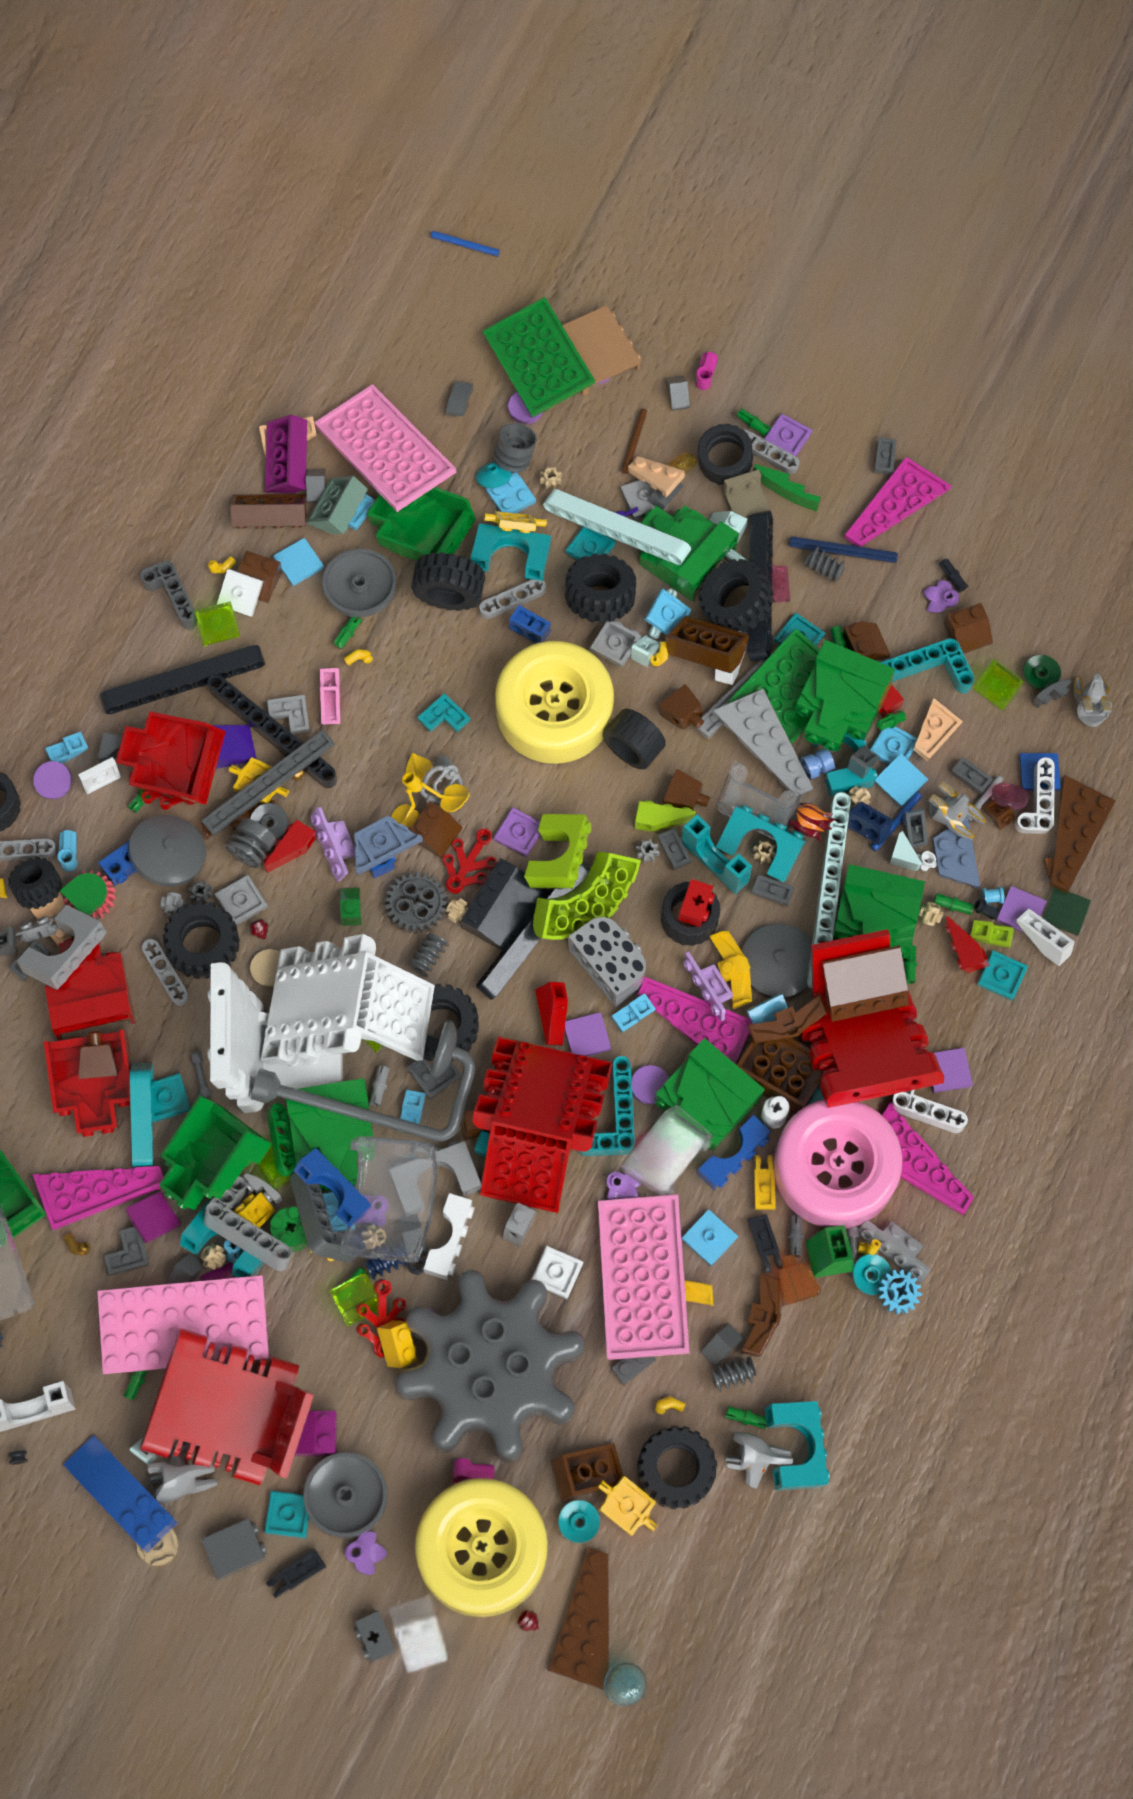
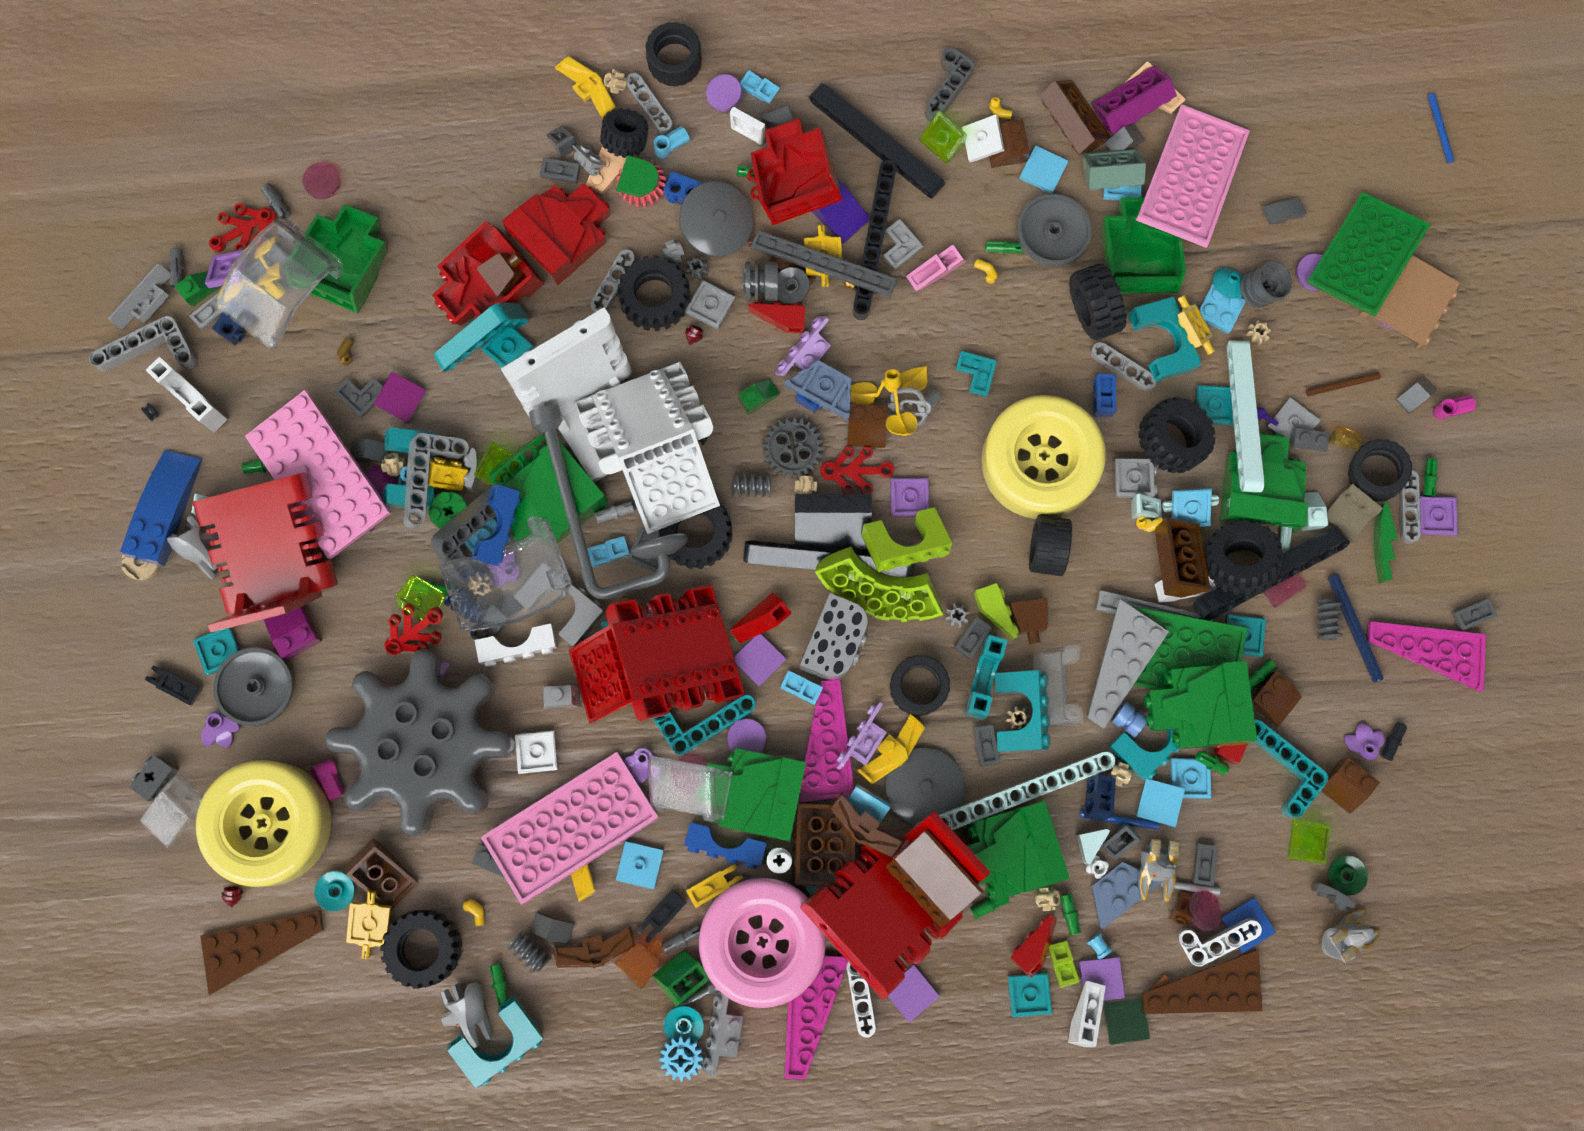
camera: 60 degrees right, 10 degrees up
(56, 969) = (556, 194): light grey arch -> none
(86, 1193) = (389, 331): dark pink wing -> none
(208, 1154) = (470, 409): green panel -> none
(234, 1549) = (165, 624): dark grey brick -> none
(264, 967) = (663, 356): tan tile -> none
(397, 1344) = (397, 656): yellow brick -> none
(625, 1684) = (220, 1005): clear light blue cylinder -> none
(658, 475) = (1320, 423): light nougat wing -> none
(682, 709) = (1108, 571): reddish brown torso -> none
(696, 892) = (934, 679): red brick -> none
(811, 821) = (1068, 744): dark red hair -> none
(862, 761) = (1154, 759): dark grey slope -> none
(867, 1248) = (705, 1009): yellow arm -> none
(936, 730) = (1229, 808): light nougat wing -> none
(982, 907) = (1081, 942): black pin -> none

